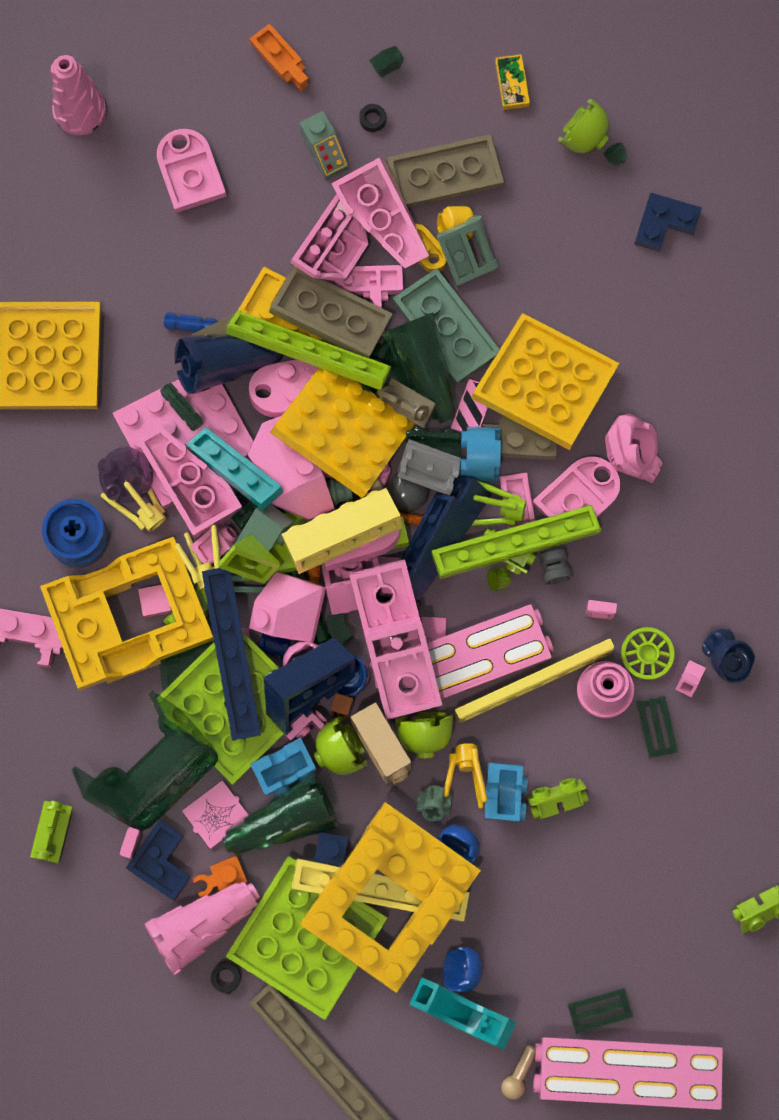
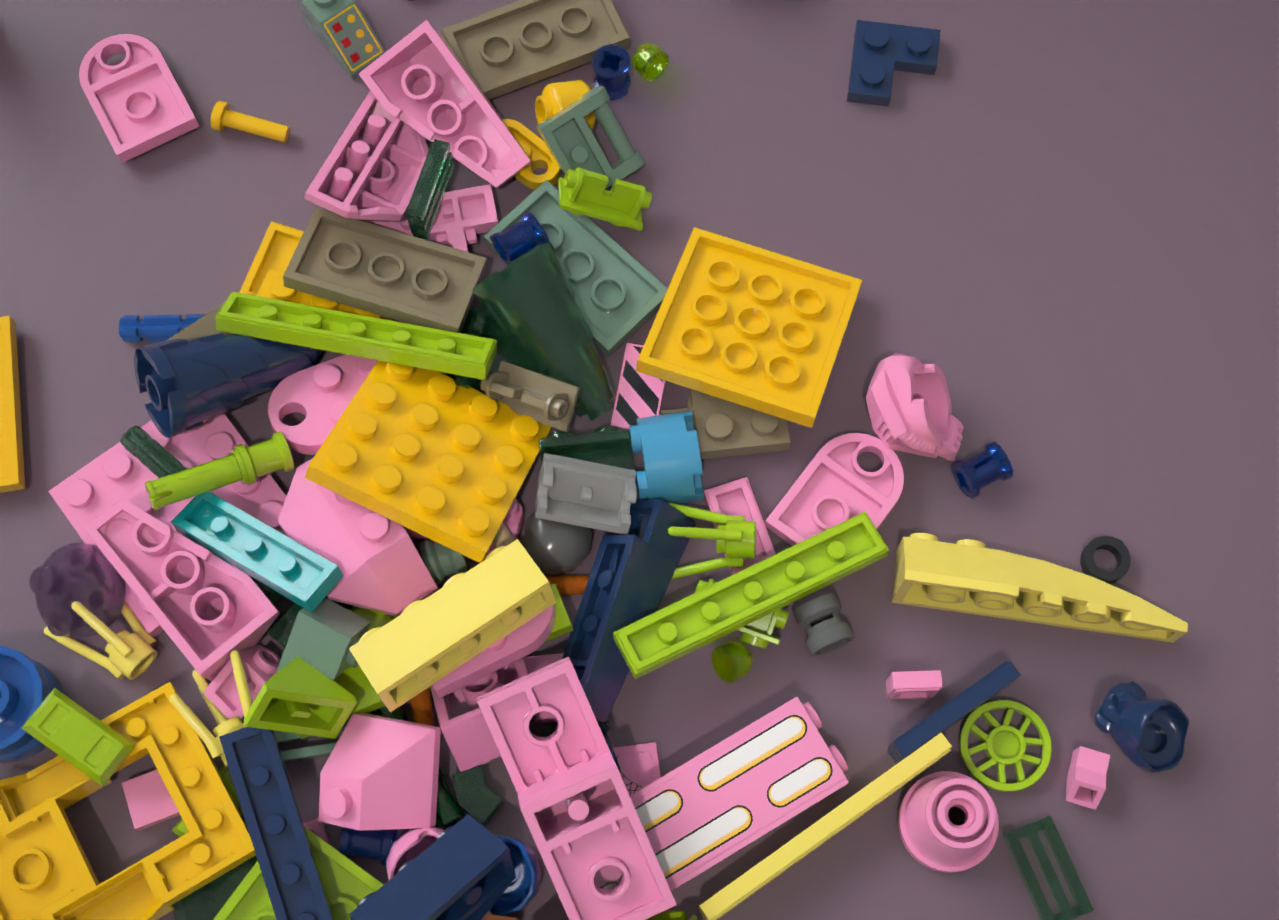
camera: 10 degrees left, 5 degrees down
(120, 558) = (78, 737): none -> lime tile
(229, 417) = (242, 465): none -> lime pin
(243, 193) = (224, 117): none -> yellow piece
(364, 264) = (430, 189): none -> clear green tile
(414, 305) = (519, 238): none -> clear blue bush
(461, 283) = (585, 194): none -> lime hinge
(490, 195) = (612, 68): none -> clear blue bush
(514, 199) = (650, 61): none -> clear neon green hinge
(622, 627) = (953, 711): none -> dark blue tile
(668, 491) = (982, 469): none -> clear blue bush
(673, 564) = (1020, 588): none -> light yellow wedge
(730, 567) = (1113, 545): none -> black piece

